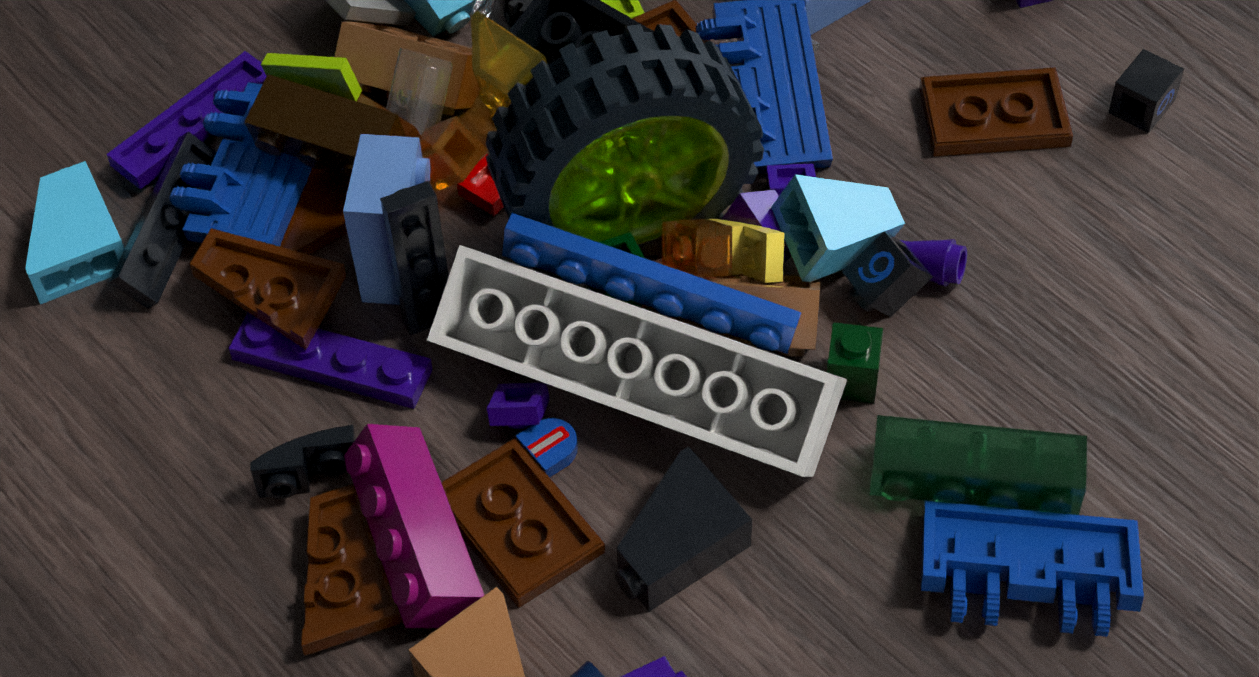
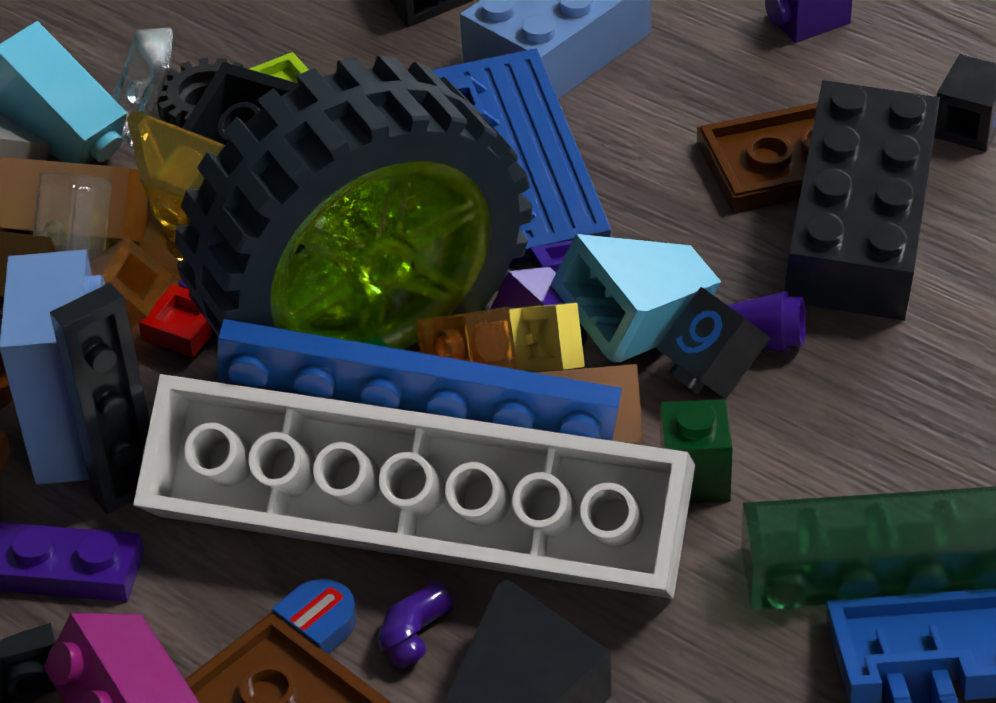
camera: 10 degrees left, 10 degrees down
(518, 405) = (268, 570): dark purple plate -> none
(611, 462) = (406, 618): none -> dark purple arm
(1032, 167) = (862, 200): none -> black brick

